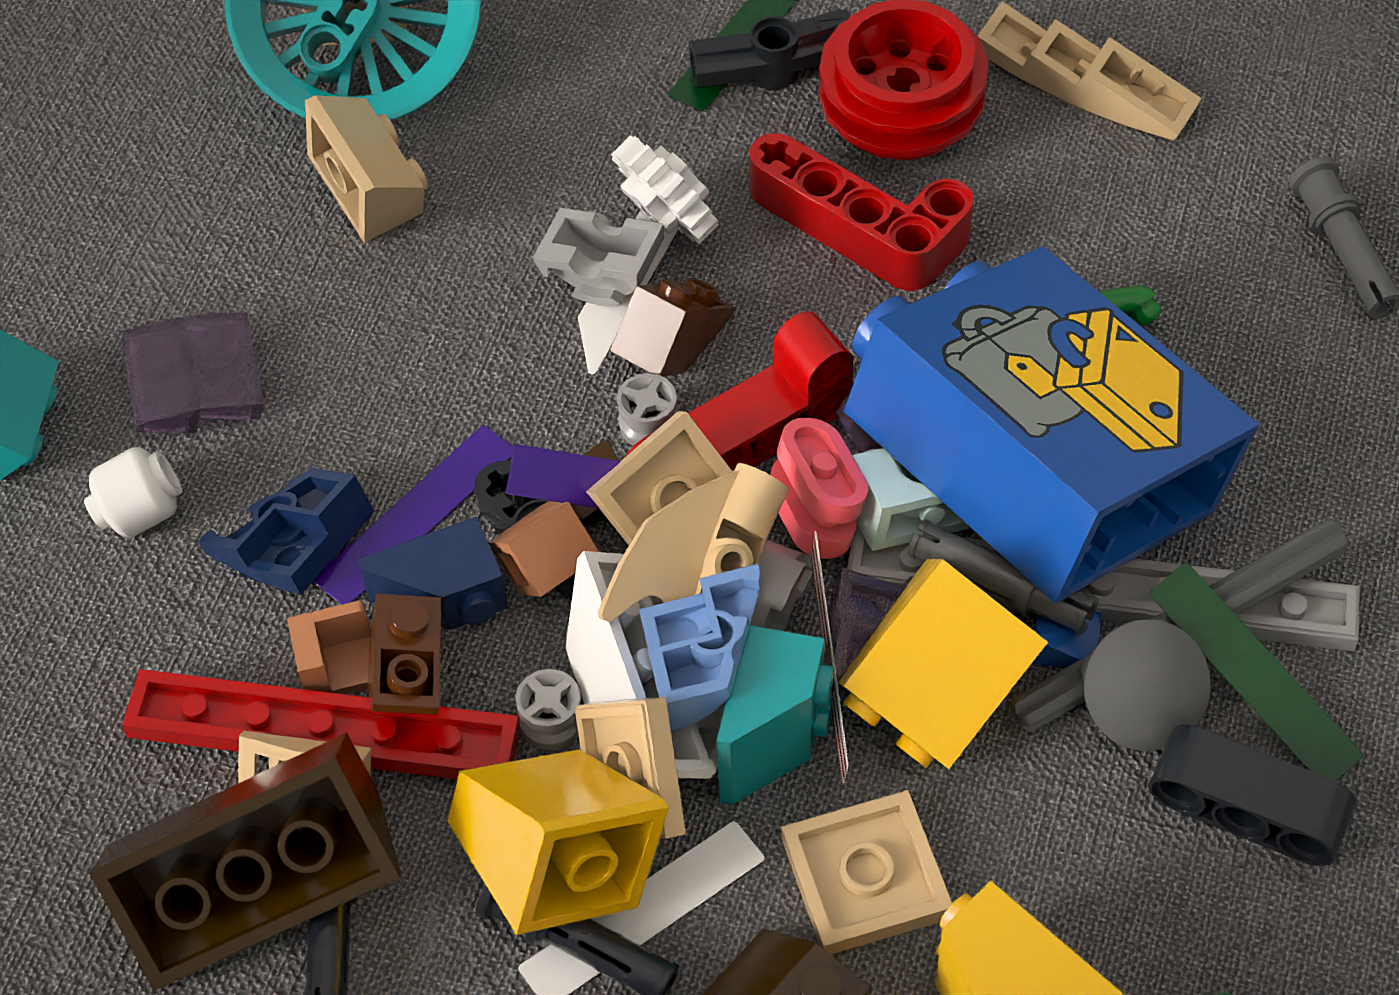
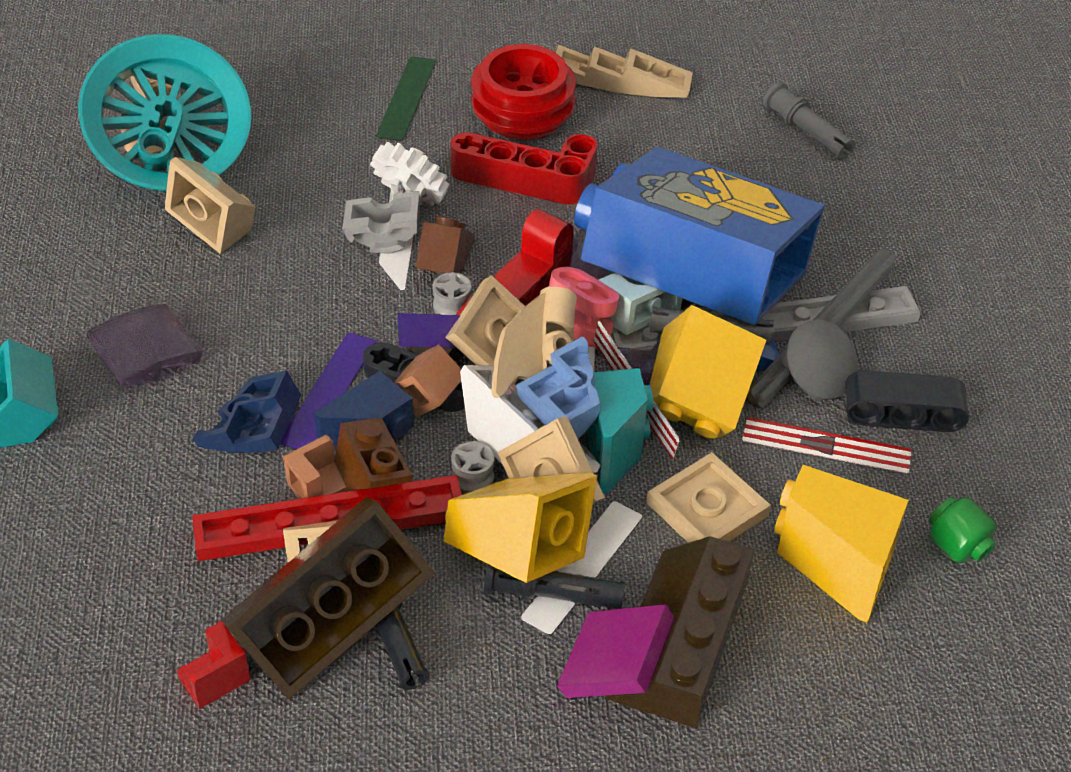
camera: 25 degrees left, 10 degrees down
(72, 917) = (216, 671): none -> red panel
(132, 492) = (137, 418): white head -> none
(765, 55) = (430, 99): black piece -> none
(1101, 828) = (827, 445): none -> sticker
(1256, 674) = (874, 336): dark green sticker -> none

